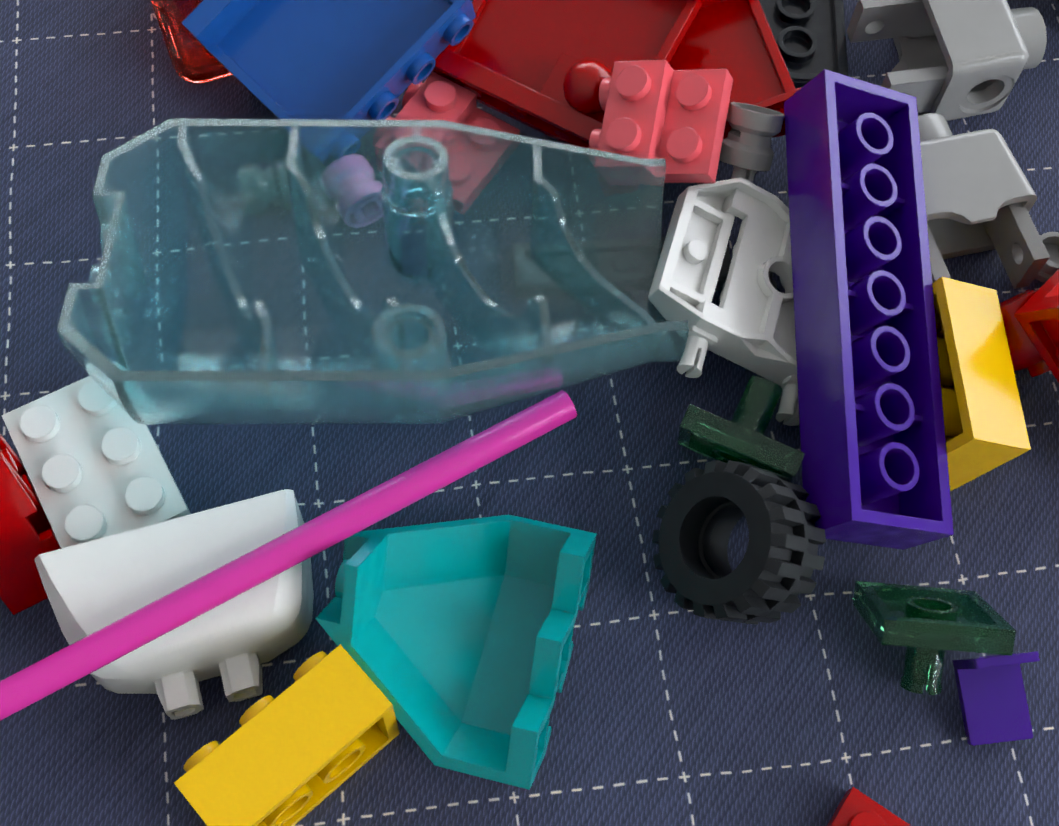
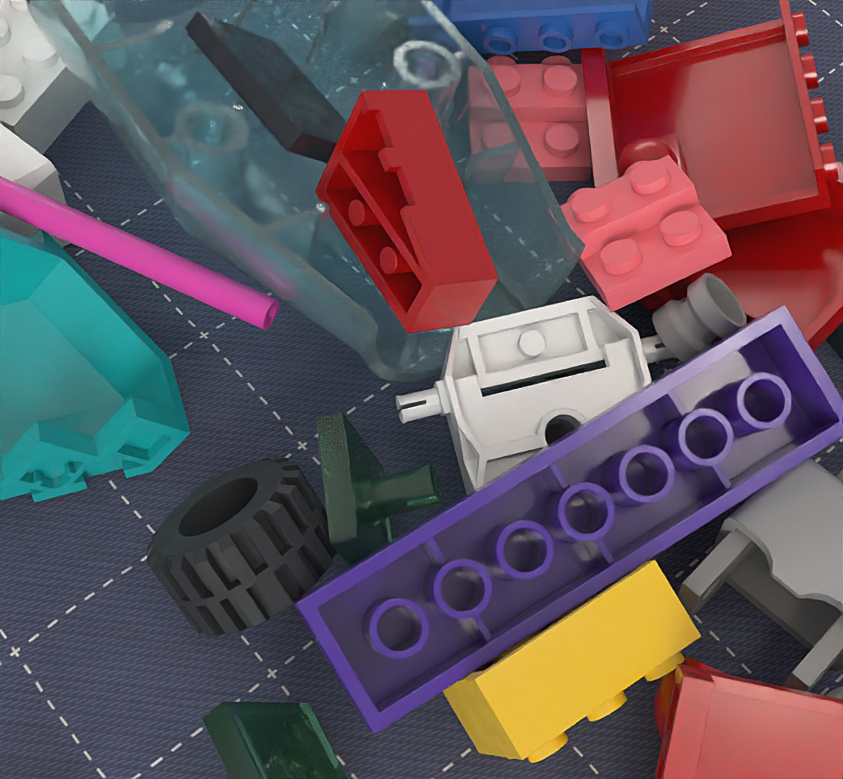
camera: 60 degrees right, 5 degrees down
(369, 273) = (270, 87): none -> black tile
(569, 250) = (408, 211): none -> red wedge

